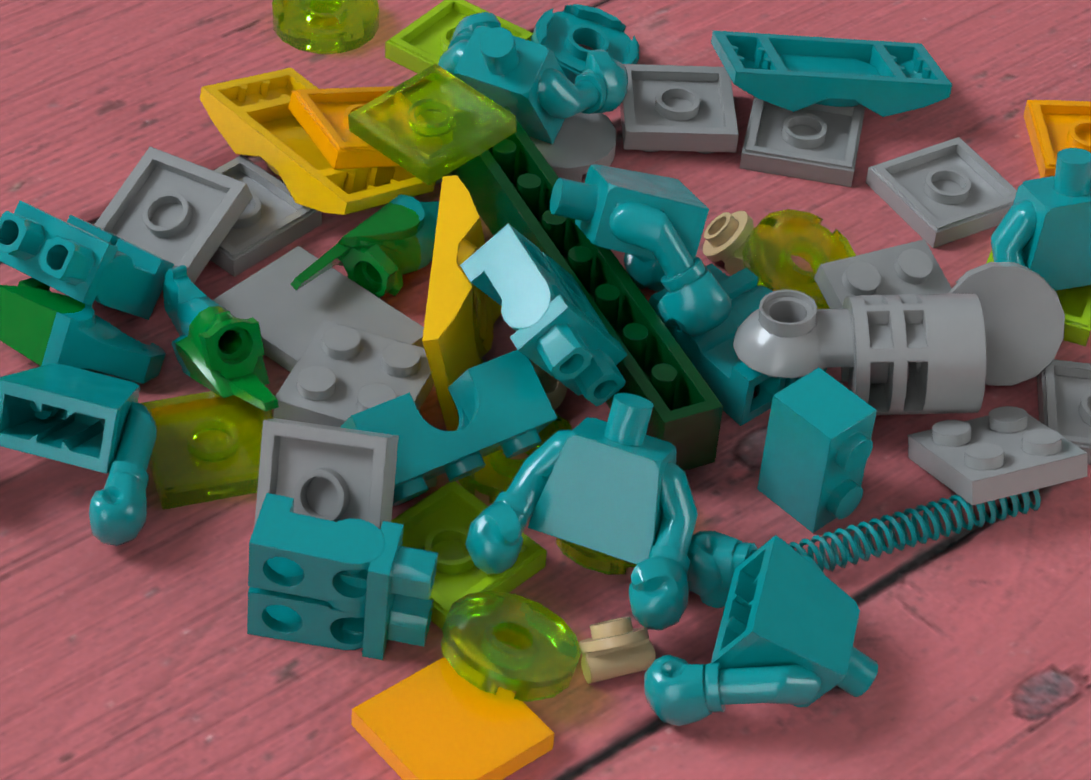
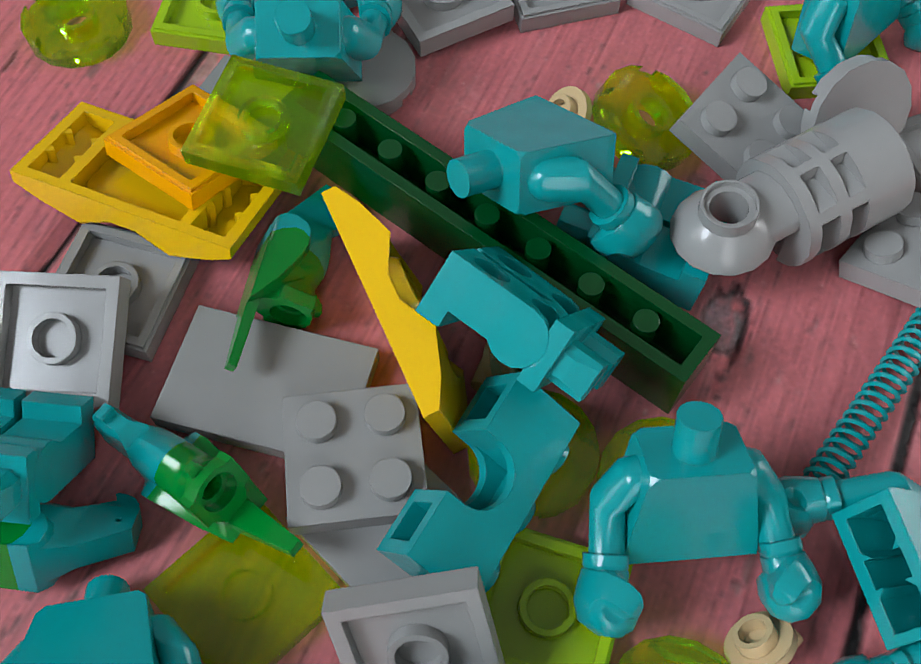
camera: 25 degrees left, 20 degrees up
(816, 450) = (816, 332): teal brick -> none

